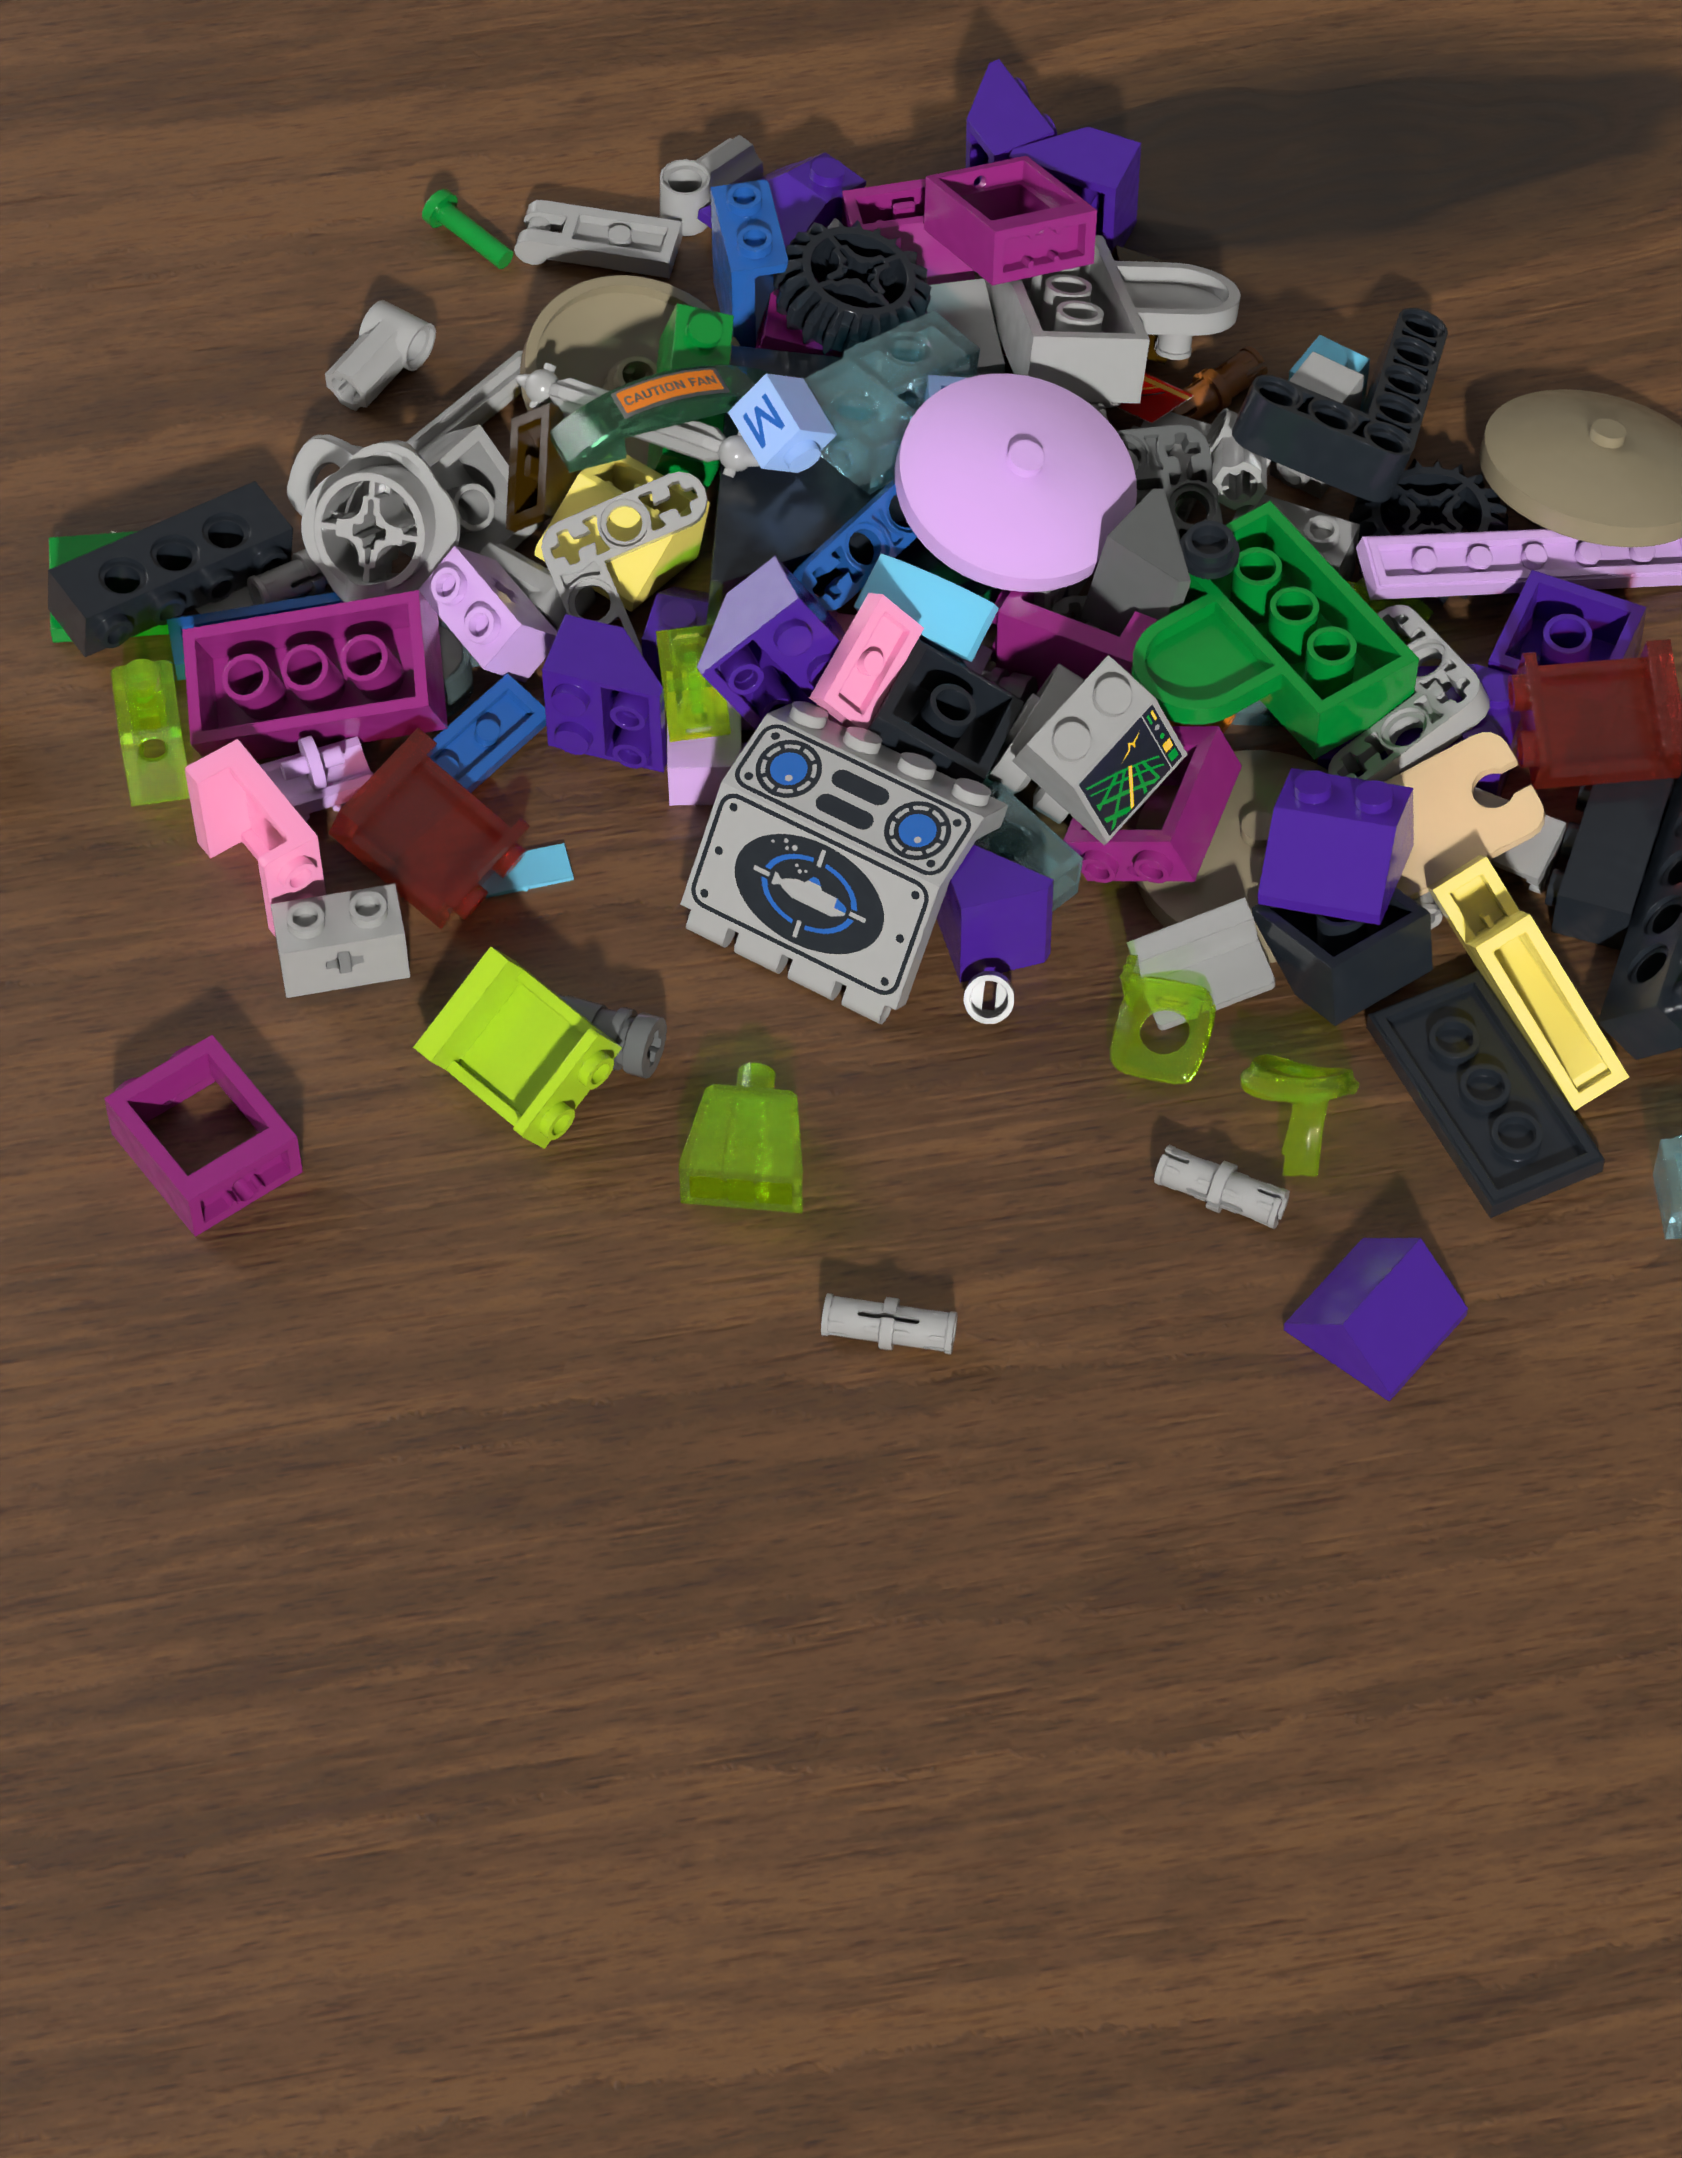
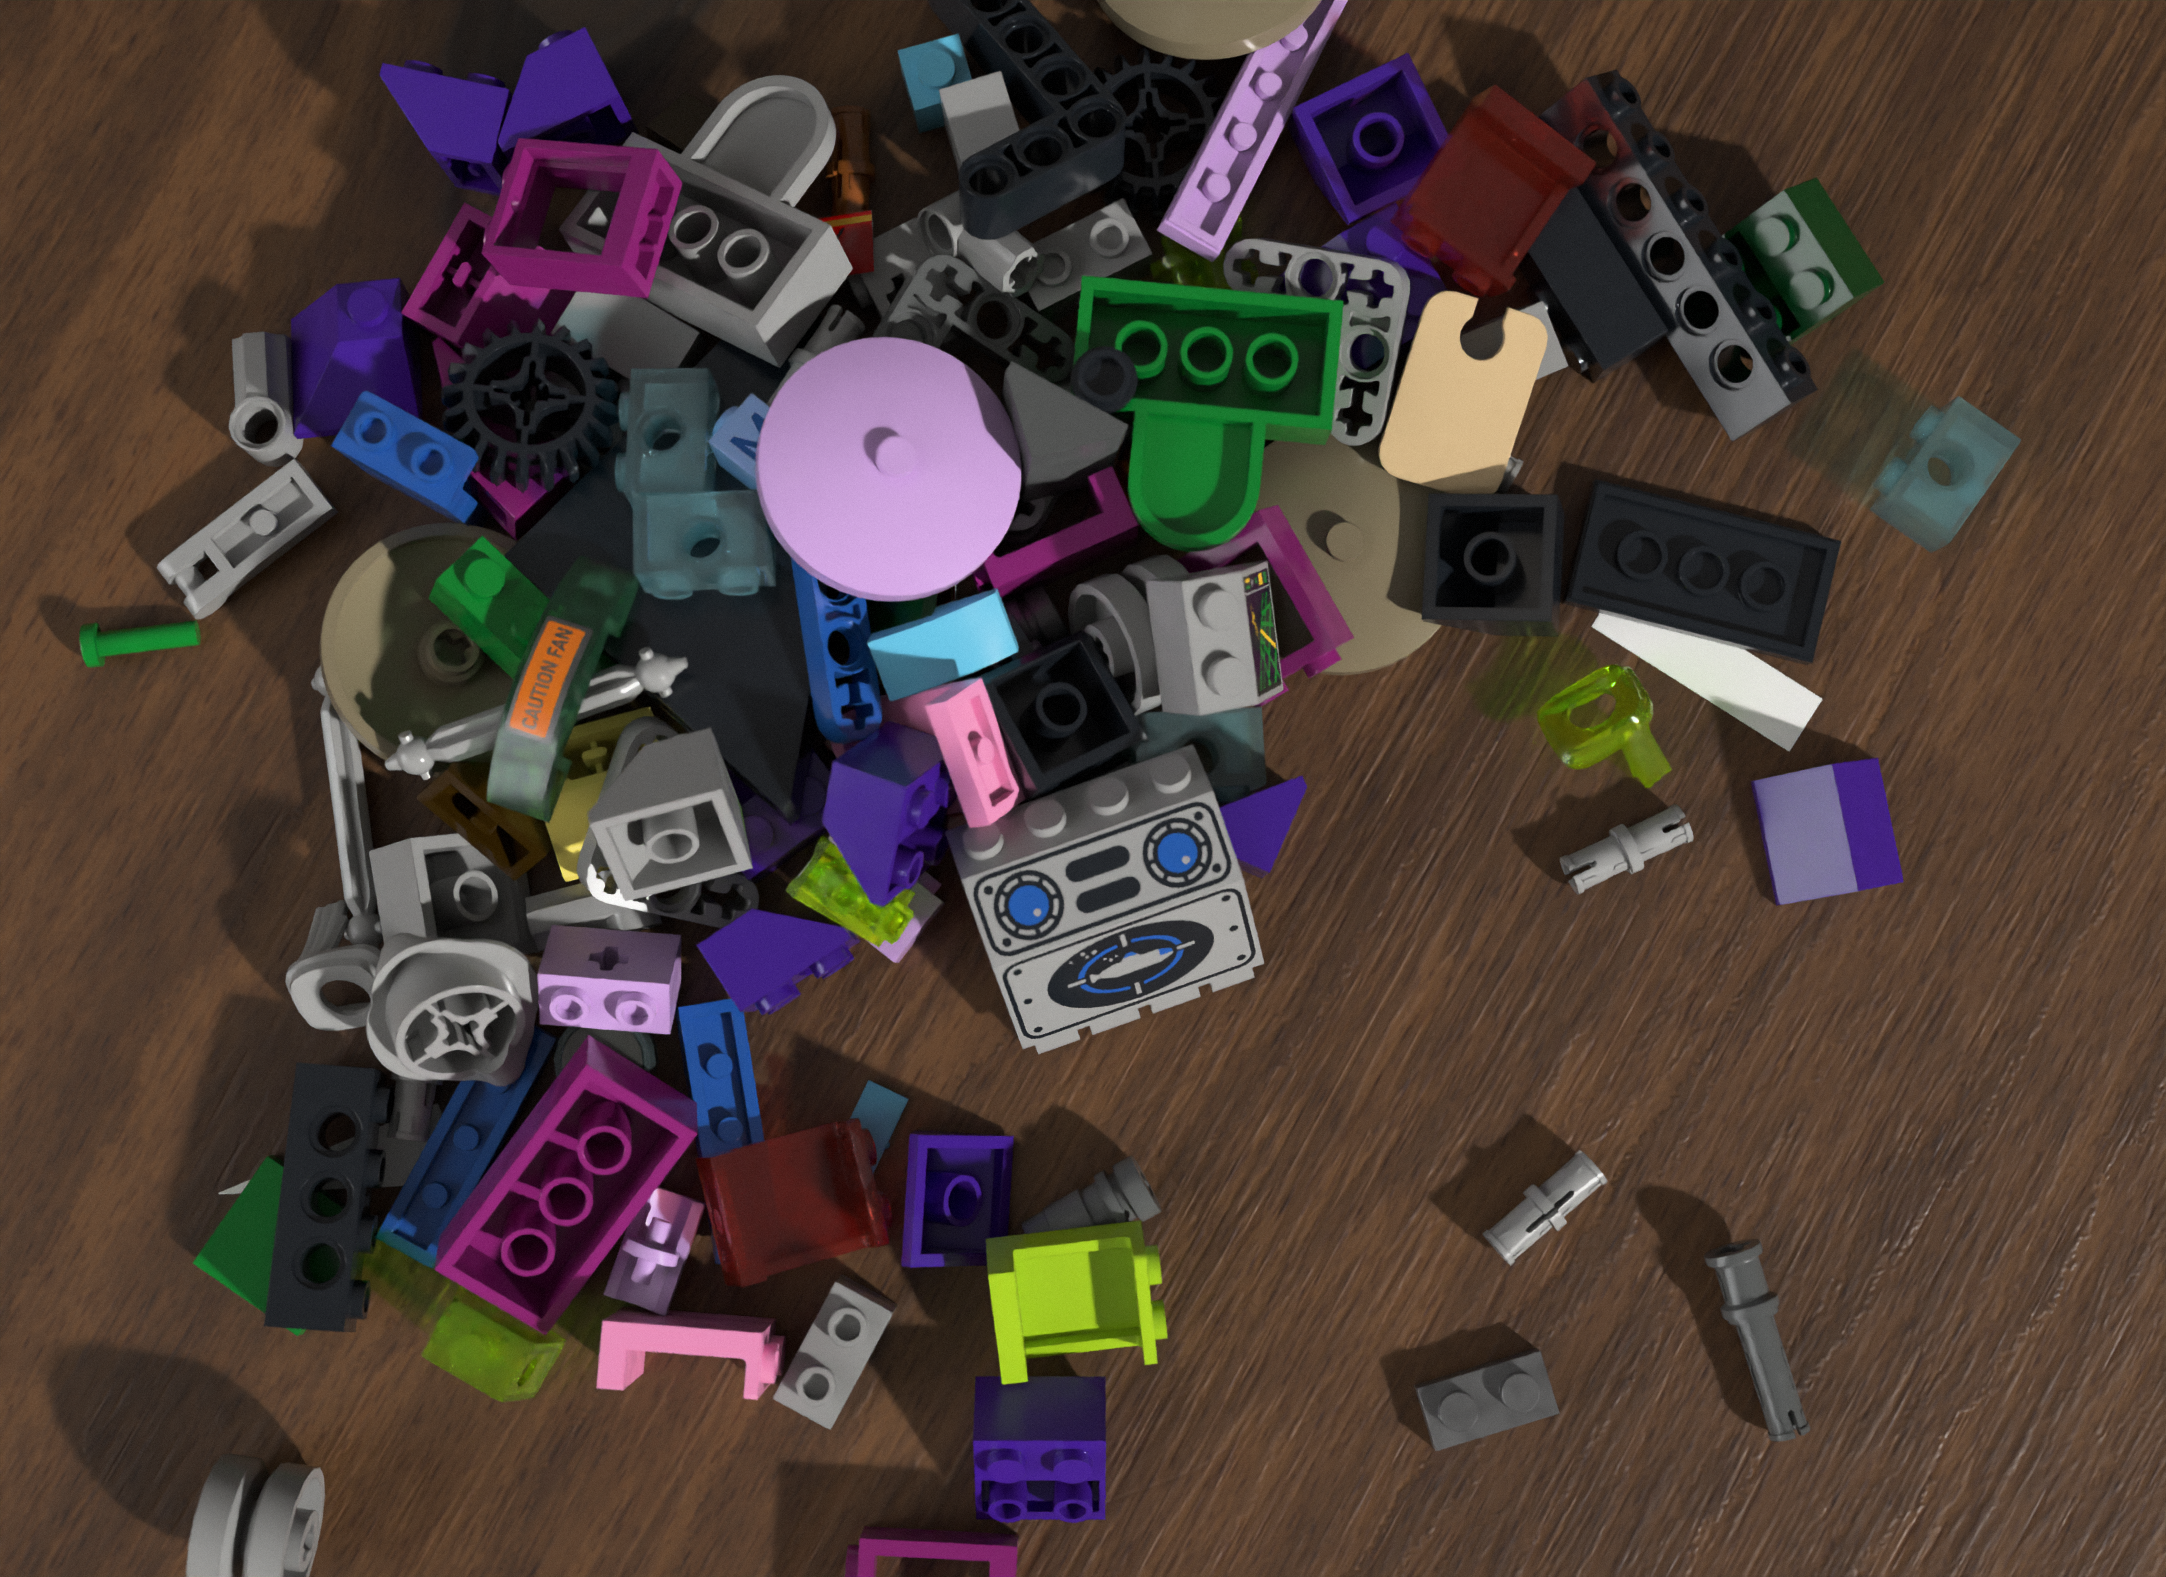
camera: 50 degrees left, 30 degrees up
(383, 1120) = (1040, 1448): none -> dark purple slope
(385, 345) = (218, 814): light grey piece -> none
(530, 918) = (955, 1197): none -> dark purple slope
(641, 526) = (671, 818): none -> light grey slope
(700, 1398) = (1486, 1399): none -> flat silver plate
(745, 1146) = (1296, 1183): clear neon green torso -> none
(782, 423) = (672, 618): light blue brick -> none
(945, 1519) = (1752, 1311): none -> dark grey pin
(1003, 997) = (1317, 888): hinge -> none
(1150, 996) = (1453, 811): clear neon green piece -> none
(1209, 951) = (1425, 694): light grey panel -> none
(1337, 846) = (1443, 515): dark purple slope -> none
(1422, 1167) = (1721, 675): none -> white sticker
(1528, 981) = (1651, 462): light yellow slope -> none

